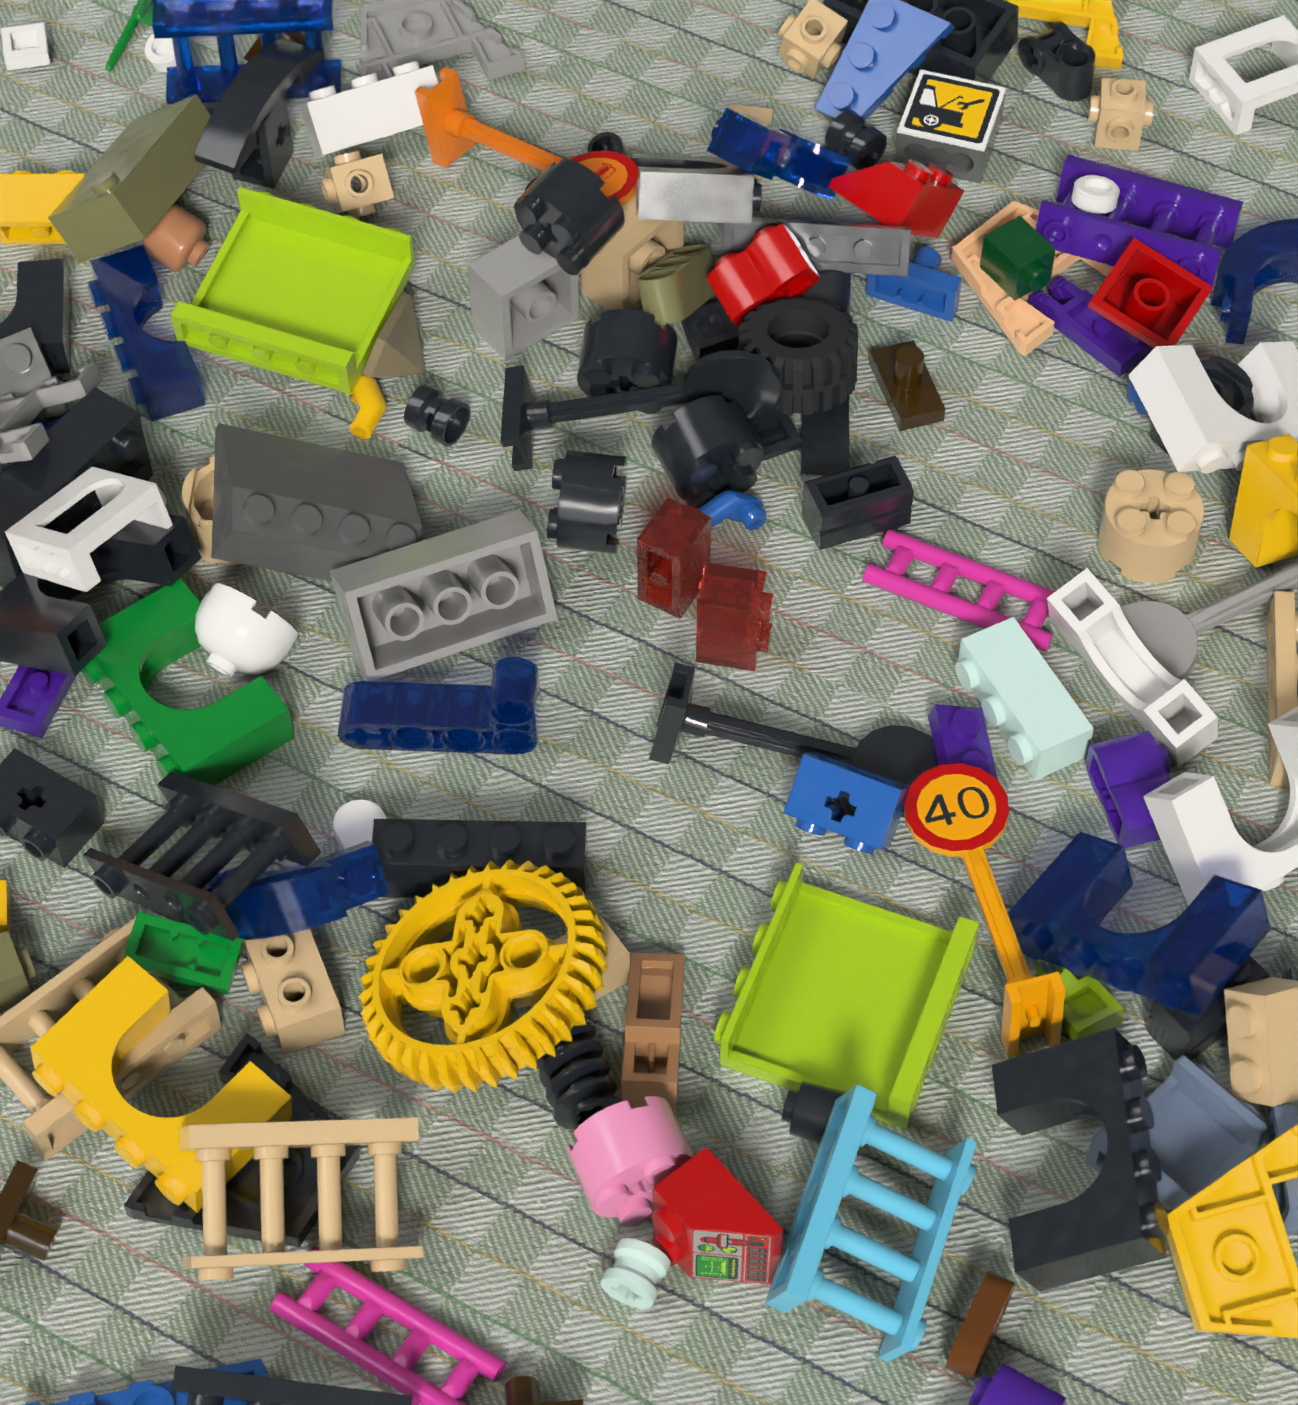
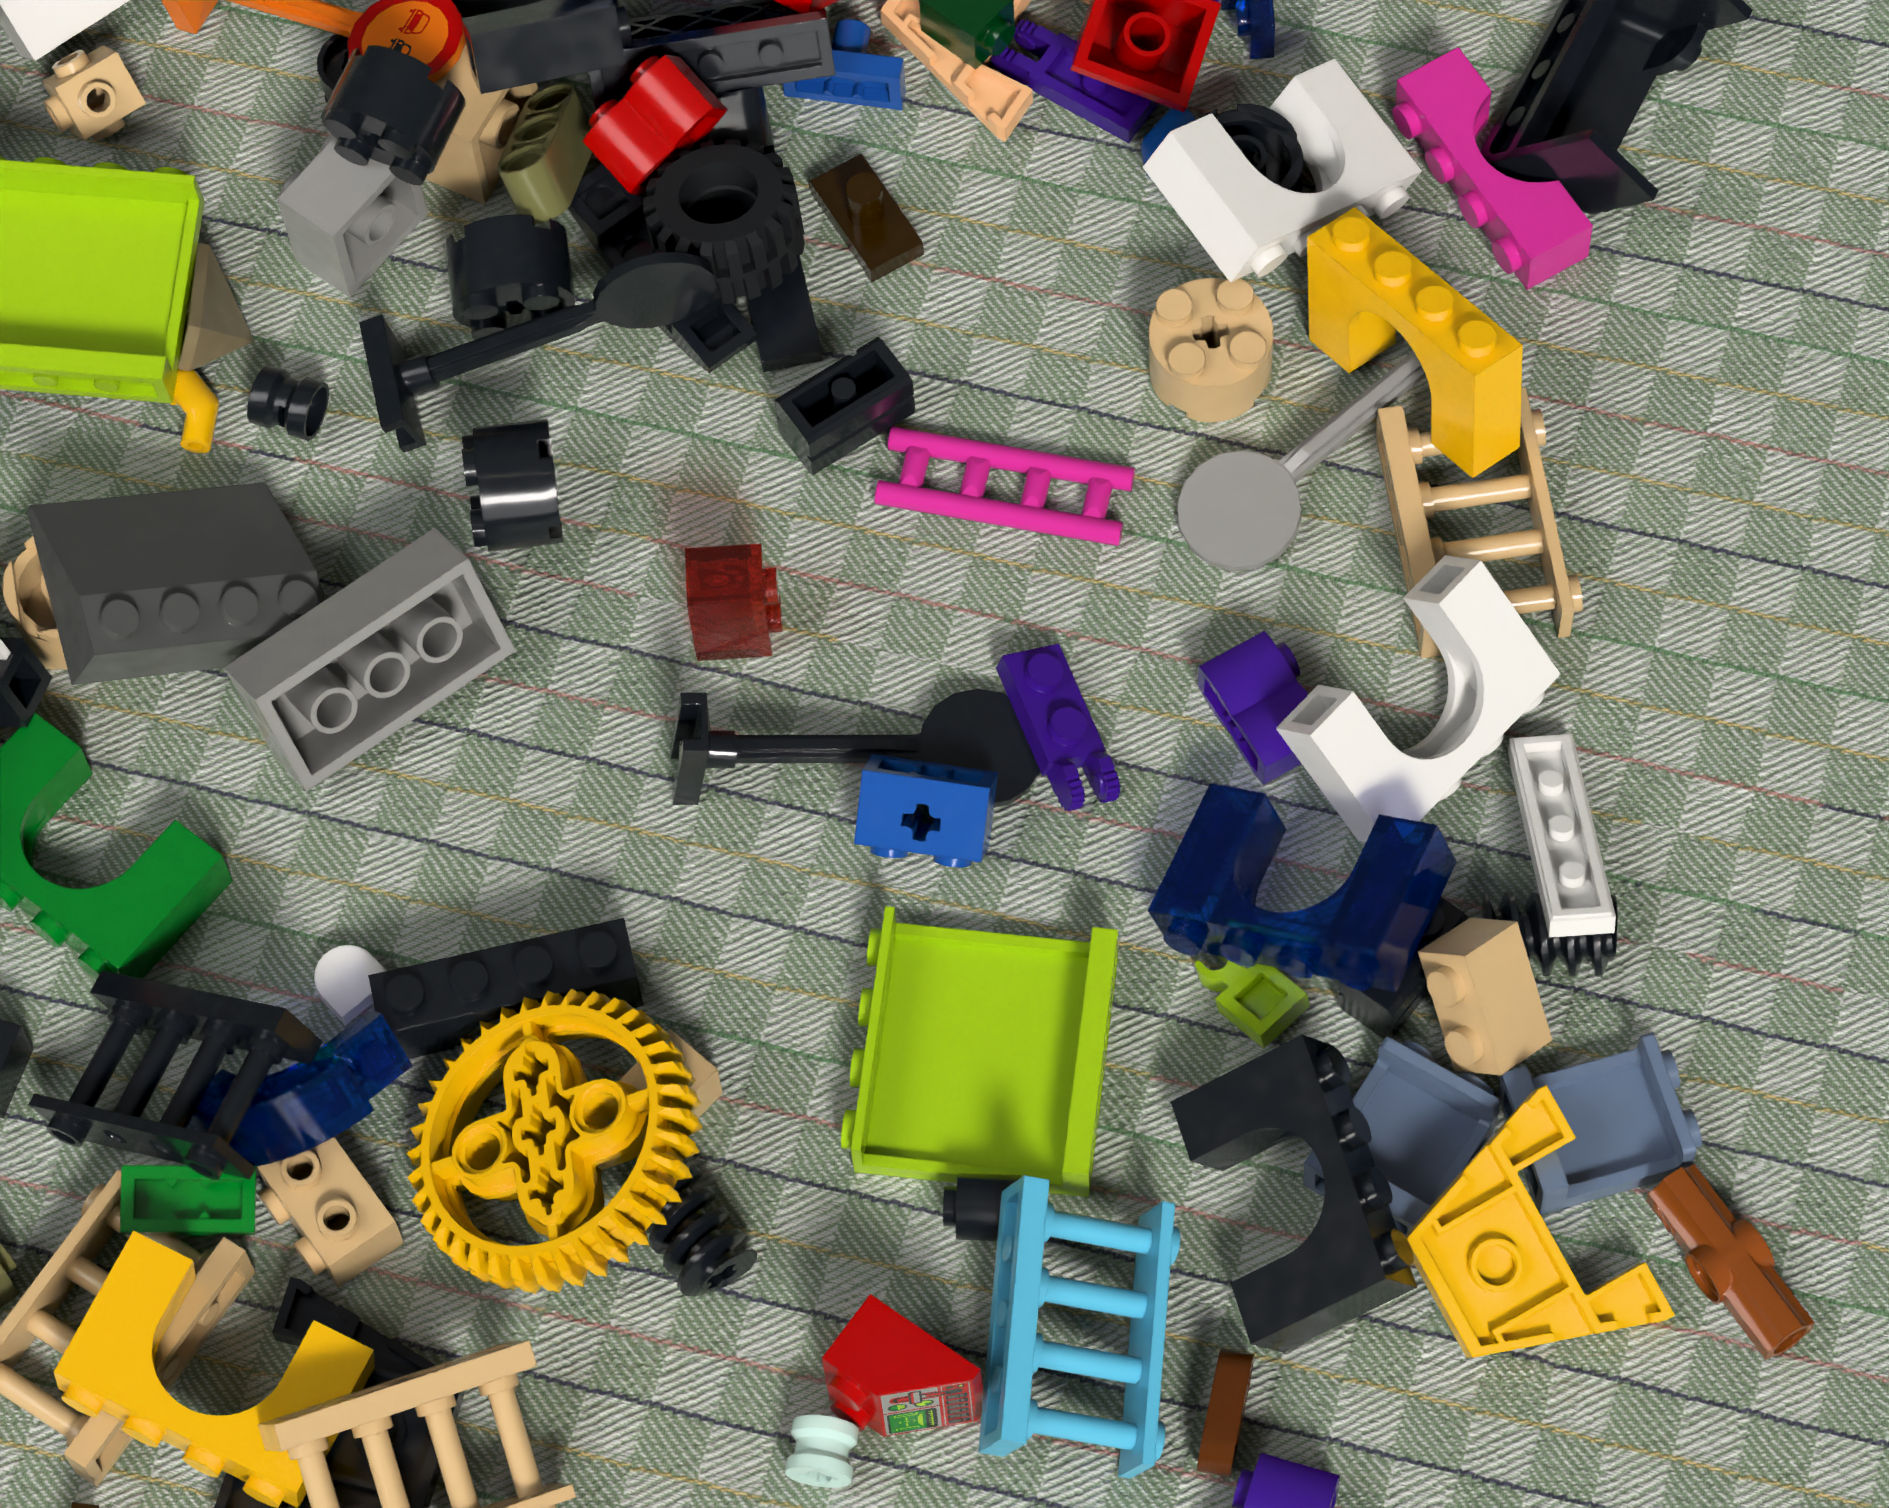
camera: 10 degrees left, 10 degrees up
(240, 633) = (130, 767): white cylinder -> none
(446, 716) = (411, 812): clear blue beam -> none
(626, 1155) = (783, 1320): bright pink brick -> none
(653, 1028) = (768, 1155): medium nougat slope -> none
(673, 557) = (639, 537): clear red brick -> none
(708, 450) = (644, 379): black brick -> none
(735, 507) = (687, 442): blue arm -> none
(961, 814) = (1062, 797): light orange piece -> none
(1023, 698) = (1105, 620): light aqua brick -> none
(1151, 694) = (1227, 554): white arch -> none

